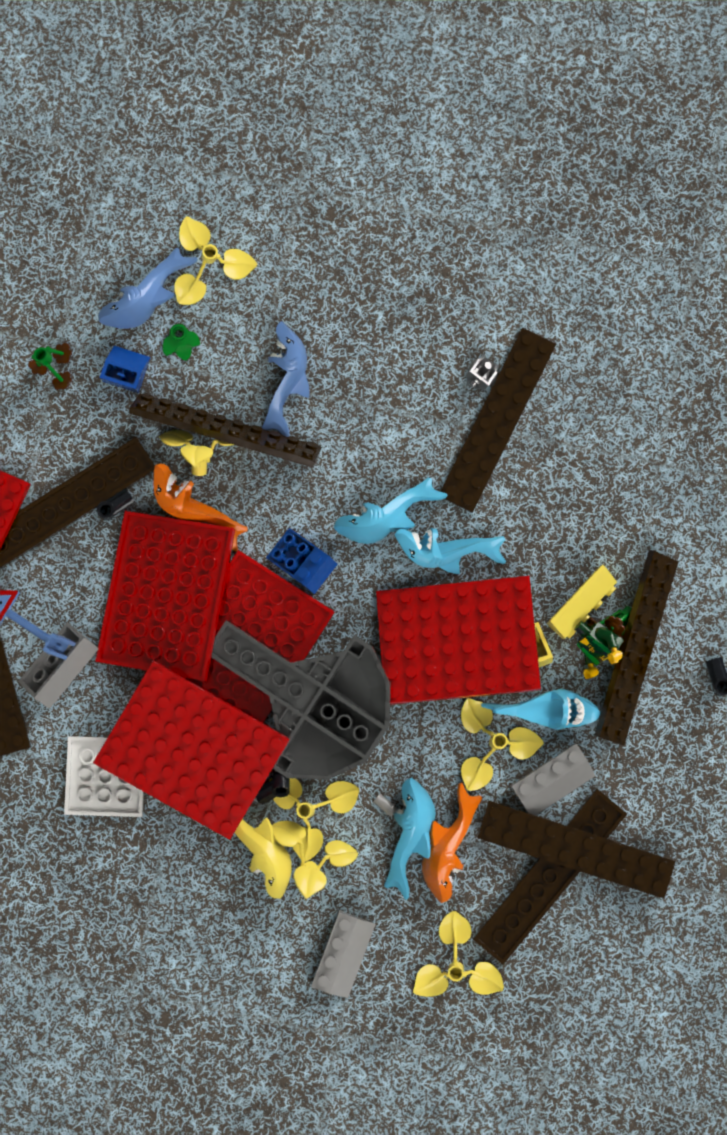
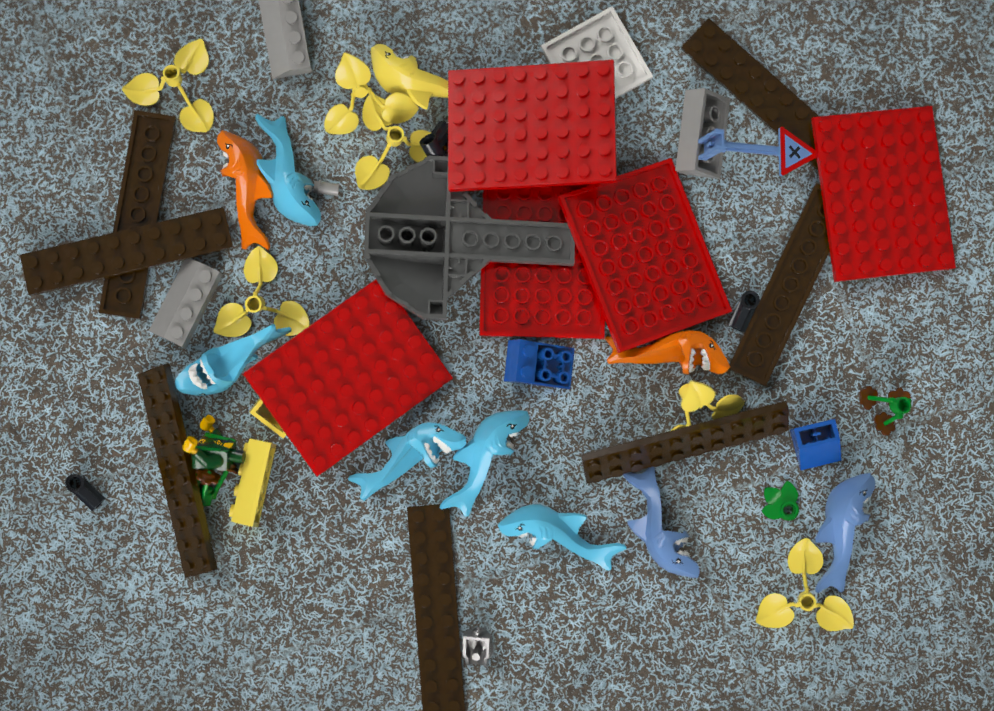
camera: 150 degrees right, 0 degrees up
(371, 430) = (562, 527): none -> medium azure piece

